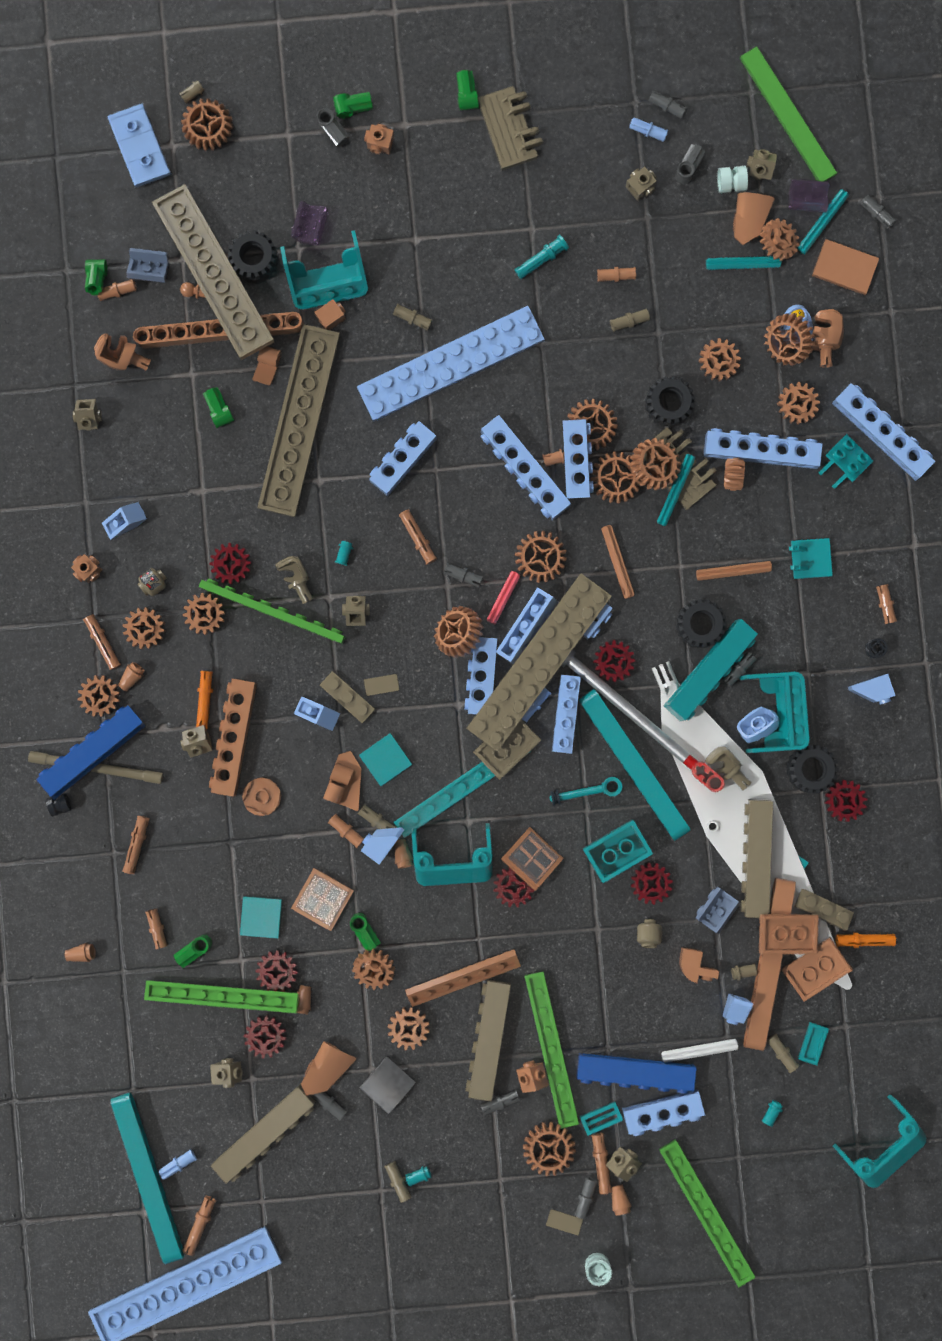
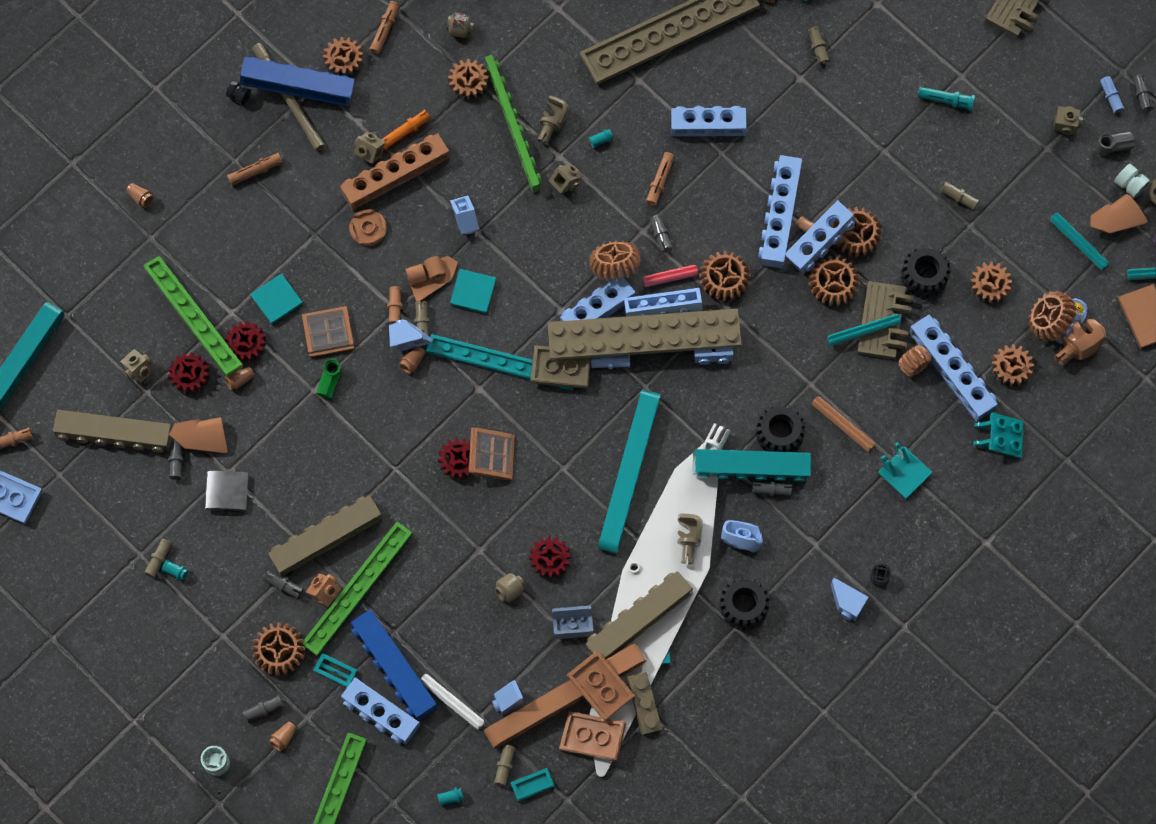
camera: 45 degrees right, 15 degrees down
(132, 674) = (378, 66): nougat cone -> none
(144, 620) = (417, 53): nougat gear -> none
(156, 928) = (204, 232): nougat pin -> none
(177, 1164) = (37, 389): light blue axle -> none
(192, 951) = (209, 270): green piece -> none
(230, 571) = (520, 60): dark red gear -> none
(347, 697) = (496, 227): dark tan plate -> none
(373, 969) = (301, 415): nougat gear -> none
(381, 684) = (527, 244): dark tan sticker -> none
(416, 1039) = (291, 472): nougat gear -> none
(450, 363) = (810, 99): light blue plate -> none
(463, 978) = (356, 478): nougat plate -> none
(476, 871) = (447, 420): teal windscreen -> none
(557, 797) = (554, 435): teal piece -> none
(564, 1222) = (230, 710): dark tan sticker -> none
(566, 714) = (623, 389): light blue brick -> none
(600, 1154) = (300, 698): nougat pin -> none
(616, 274) = (984, 159): nougat pin -> none
(617, 669) = (688, 388): dark red gear -> none
(617, 851) = (552, 509): teal brick -> none
(618, 561) = (772, 334): nougat axle -> none
(624, 1163) = (314, 713): dark tan brick -> none
(642, 721) = (667, 452): flat silver piece -> none
(658, 479) = (877, 284): nougat gear -> none
(690, 965) = (511, 639): nougat brick -> none
(743, 971) = (542, 683): dark tan pin -> none
(779, 239) = (1121, 249): nougat gear -> none
(791, 711) = (790, 529): teal windscreen -> none
(851, 794) = (734, 650): dark red gear -> none
(865, 940) = (648, 756): orange pin -> none
(873, 431) = (1044, 491): light blue brick -> none
(886, 603) = (921, 556): nougat pin -> none

